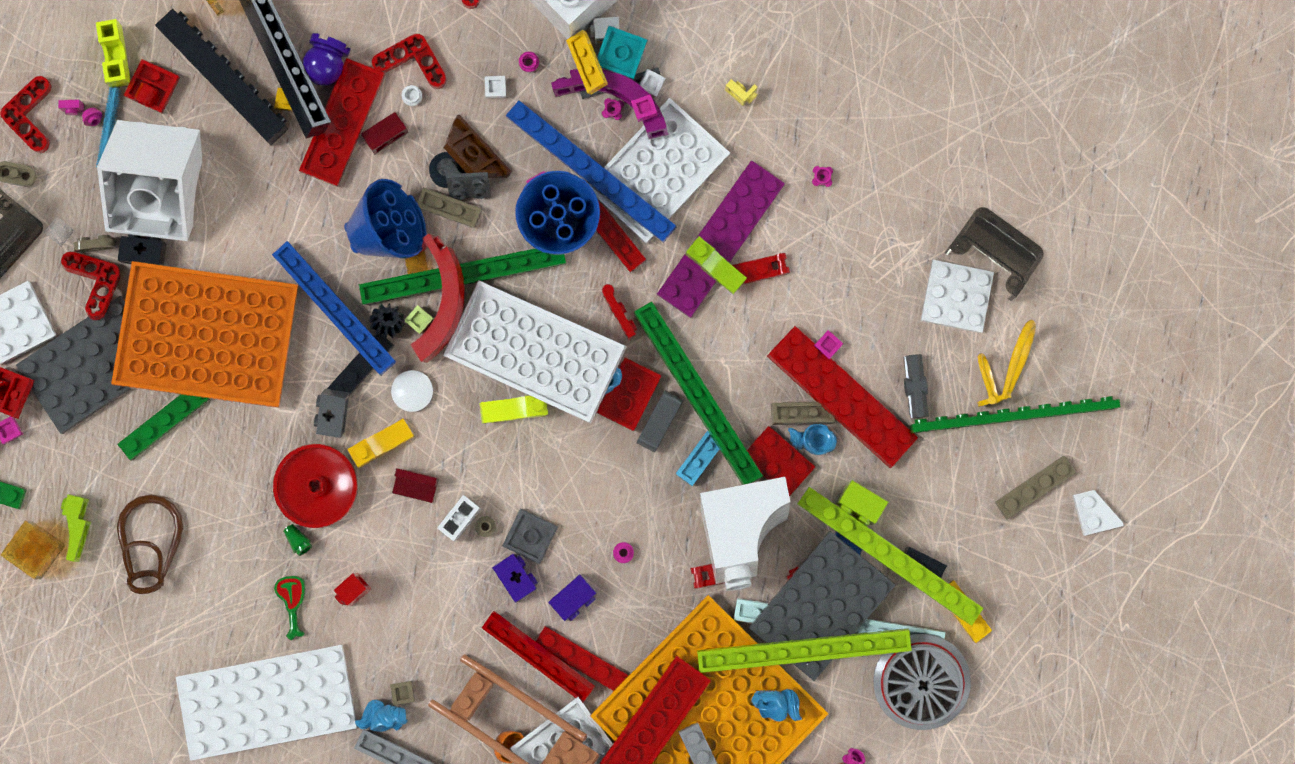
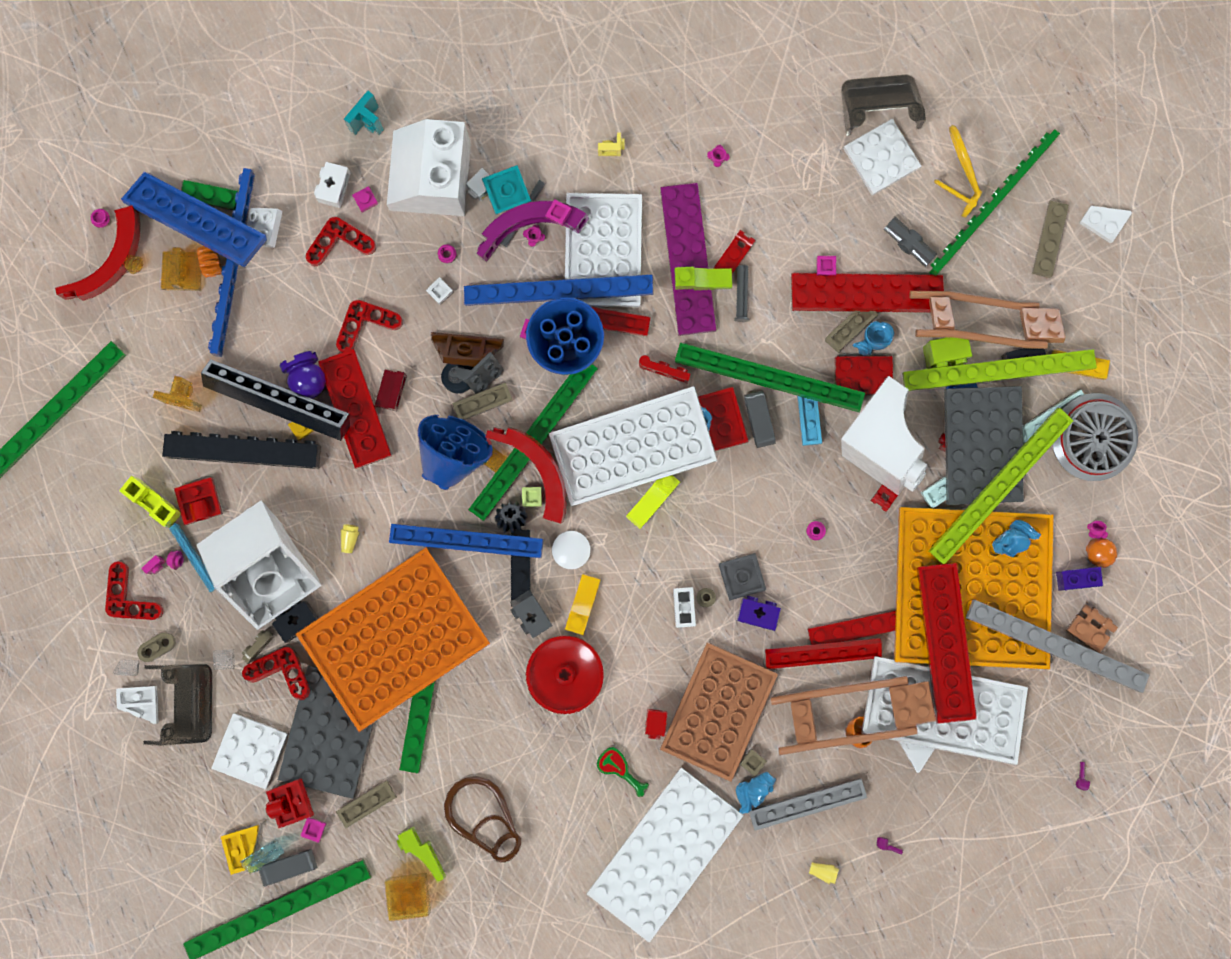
camera: 40 degrees left, 0 degrees up
(67, 447) = (366, 804): none -> dark tan plate
(246, 220) = (349, 537): none -> light yellow cone
(298, 541) = (585, 723): green cone -> none
(411, 95) = (386, 348): white plate -> none
(412, 627) = (718, 712): none -> nougat plate
(415, 485) = (632, 613): dark red panel -> none
(572, 598) = (810, 592): dark purple brick -> none
(586, 62) = (489, 216): yellow plate -> none
(652, 82) = (544, 192): white tile -> none
(739, 306) = (742, 294): none -> dark grey axle
(959, 547) = (1038, 324): none -> nougat plate

